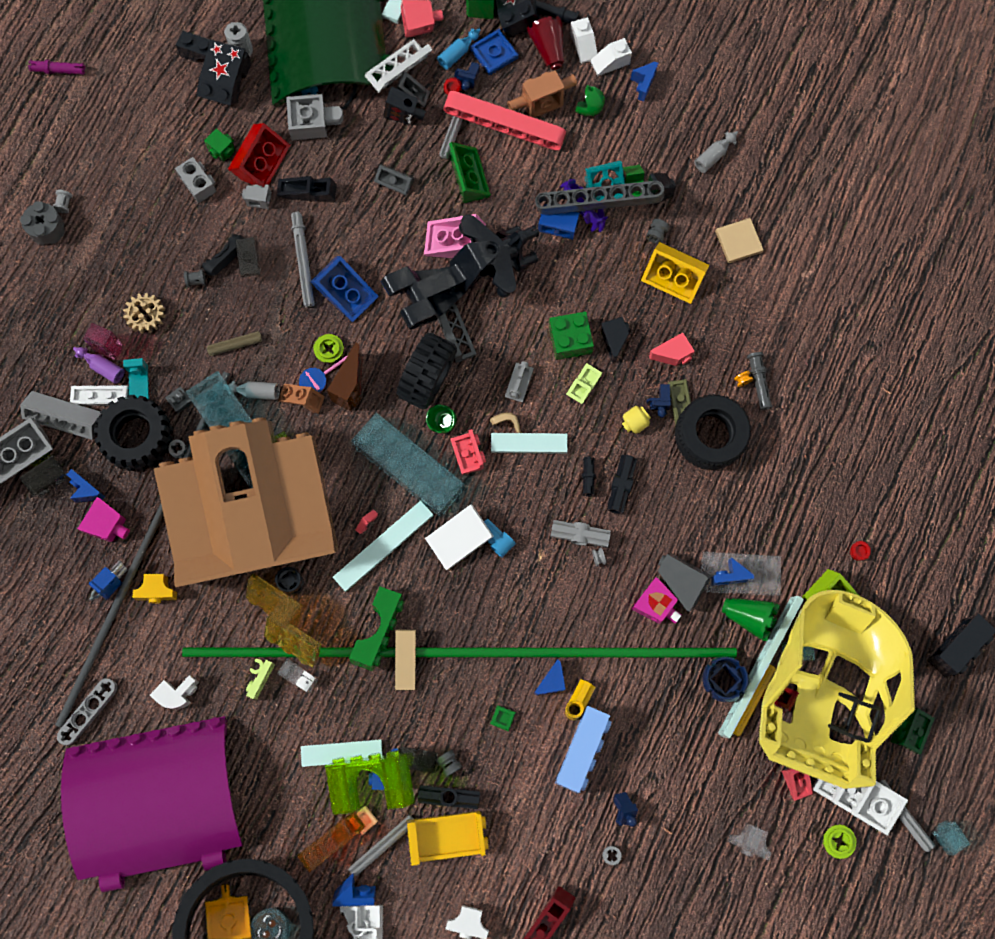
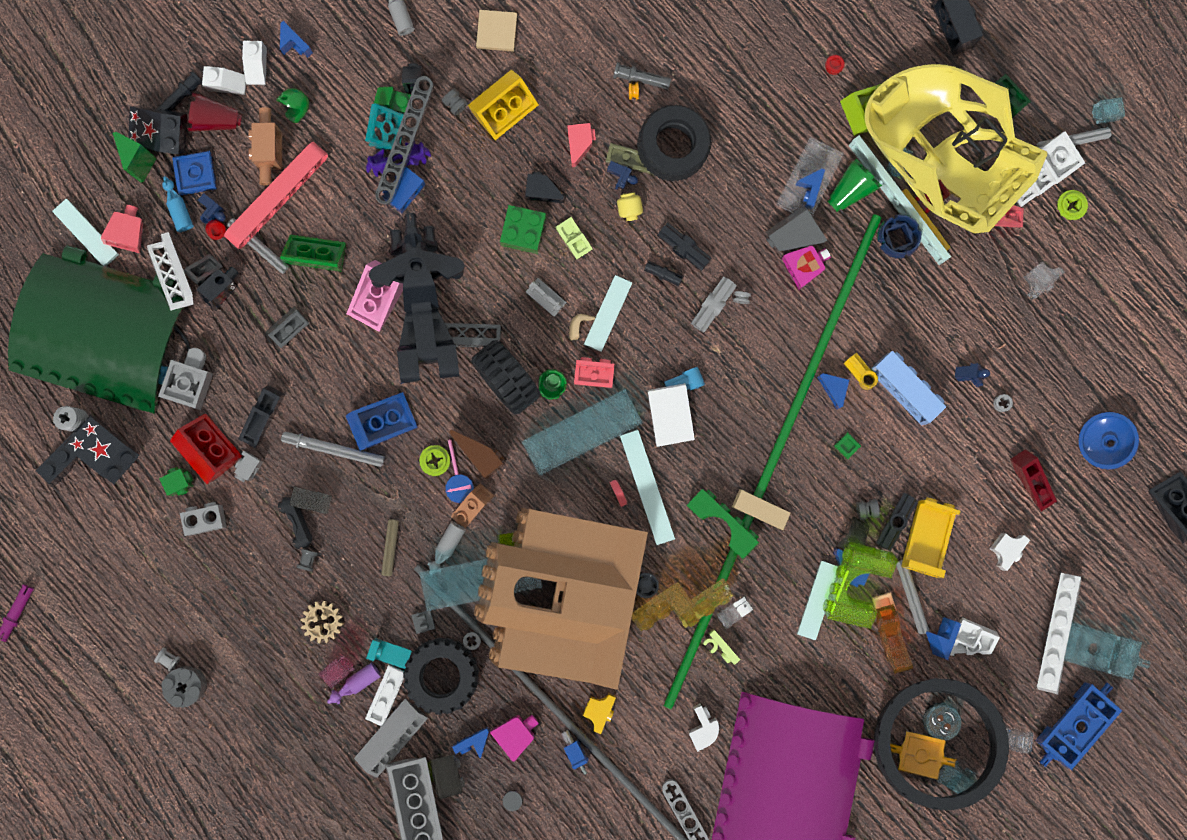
camera: 70 degrees left, 10 degrees up
(43, 546) = (512, 800): none -> dark grey tile

